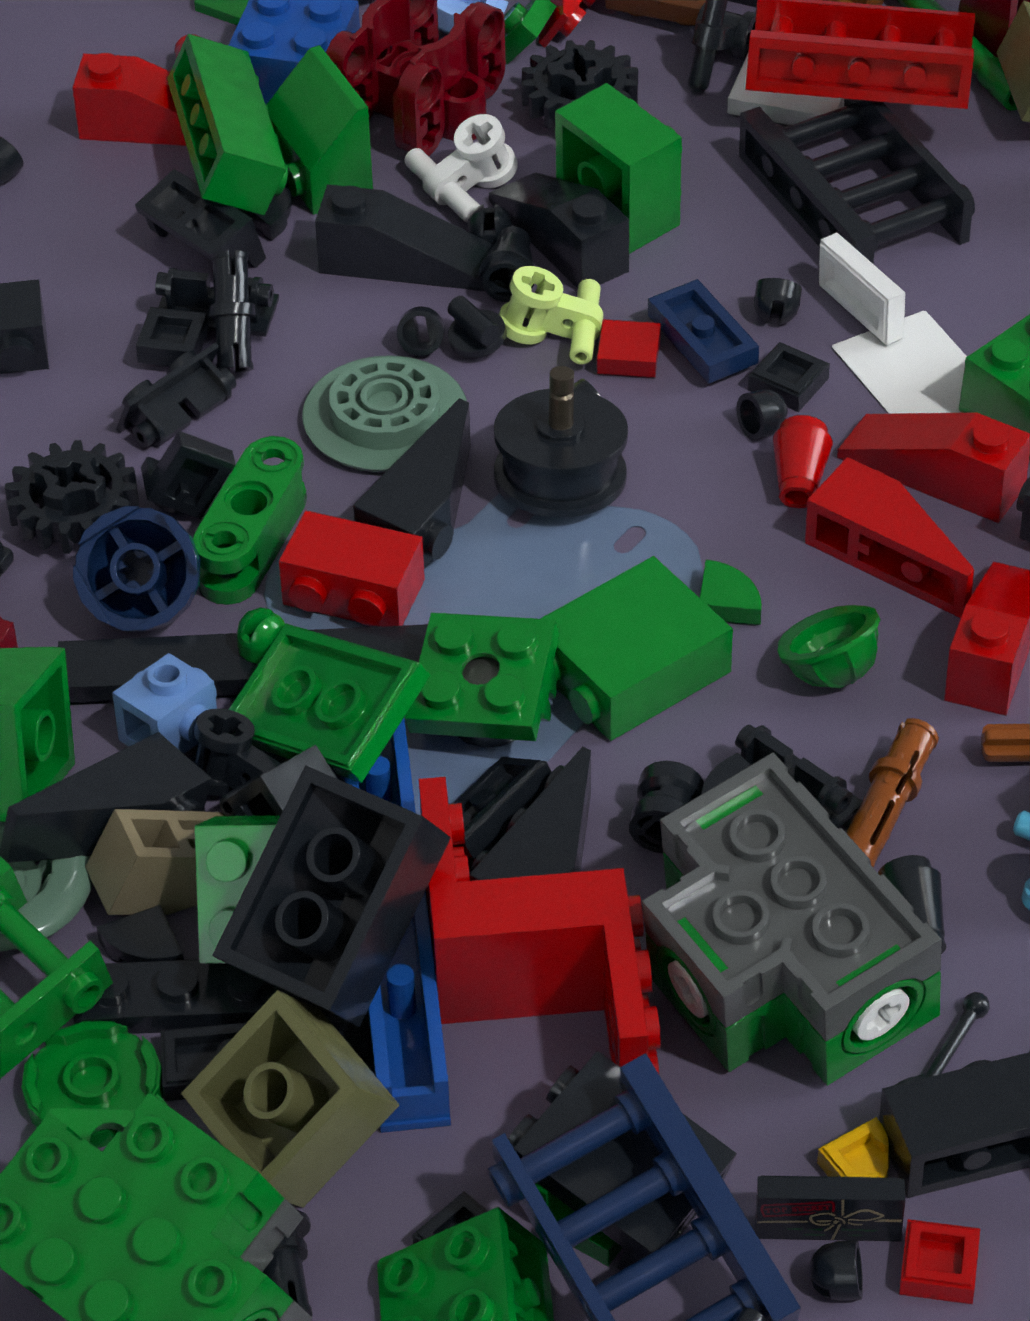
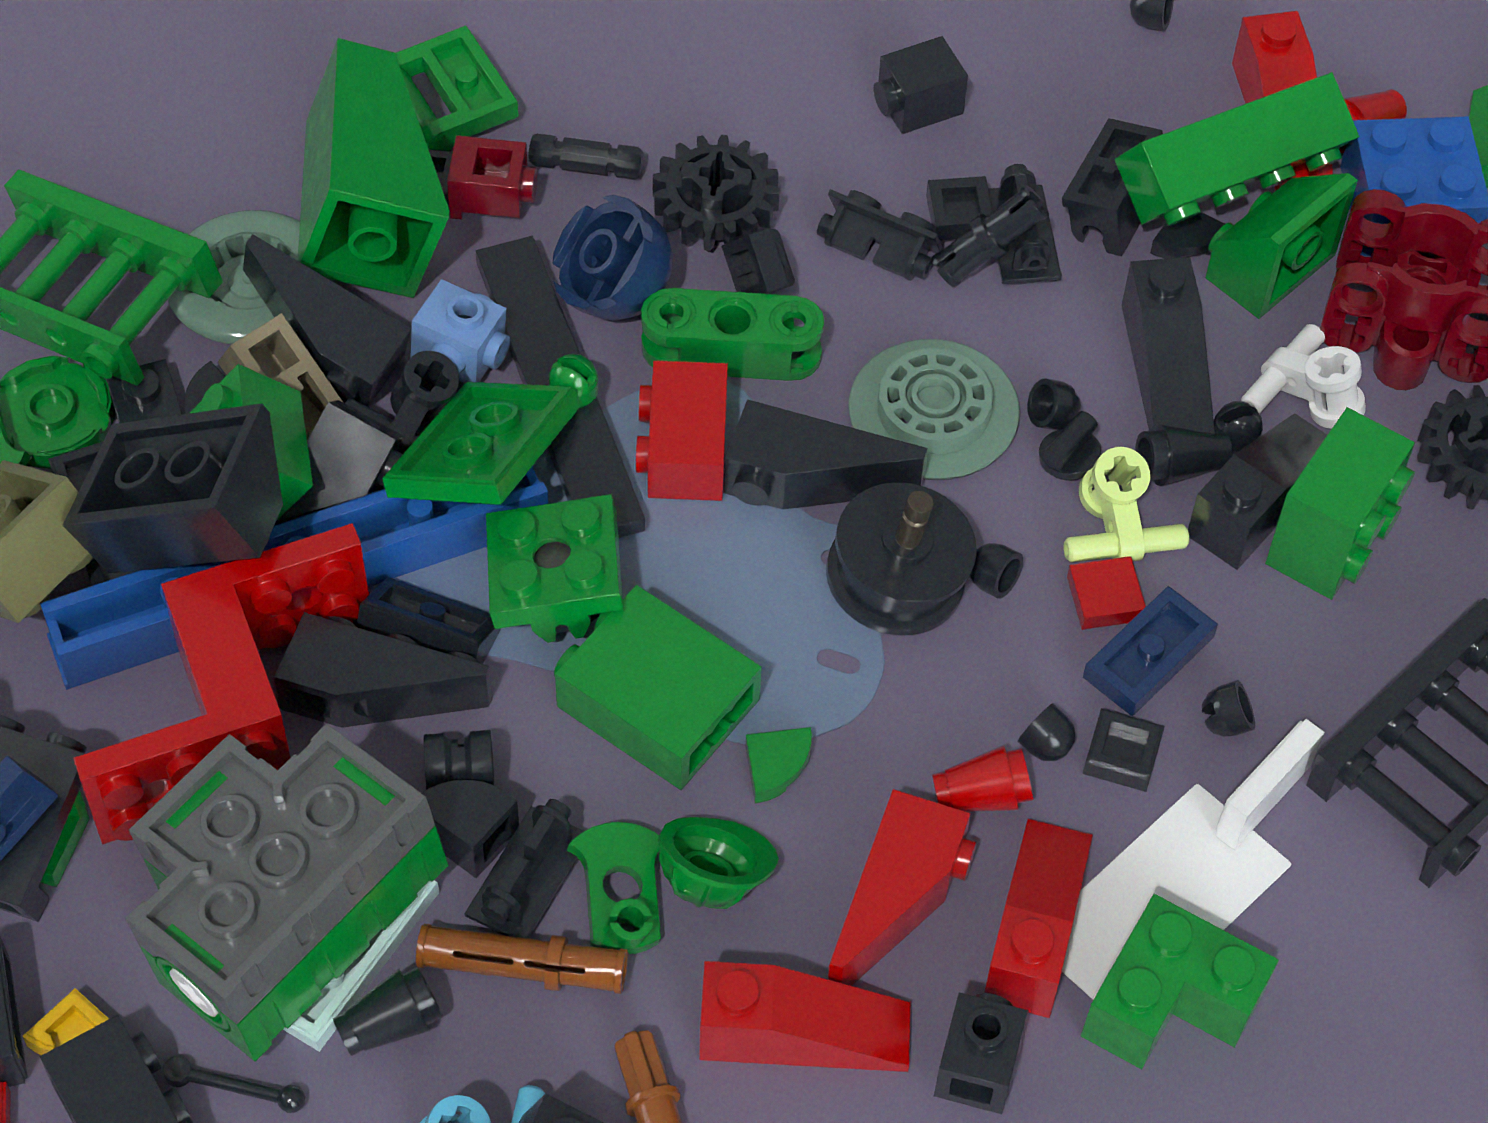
camera: 70 degrees right, 10 degrees up
(790, 714) = (626, 850): none -> green piece

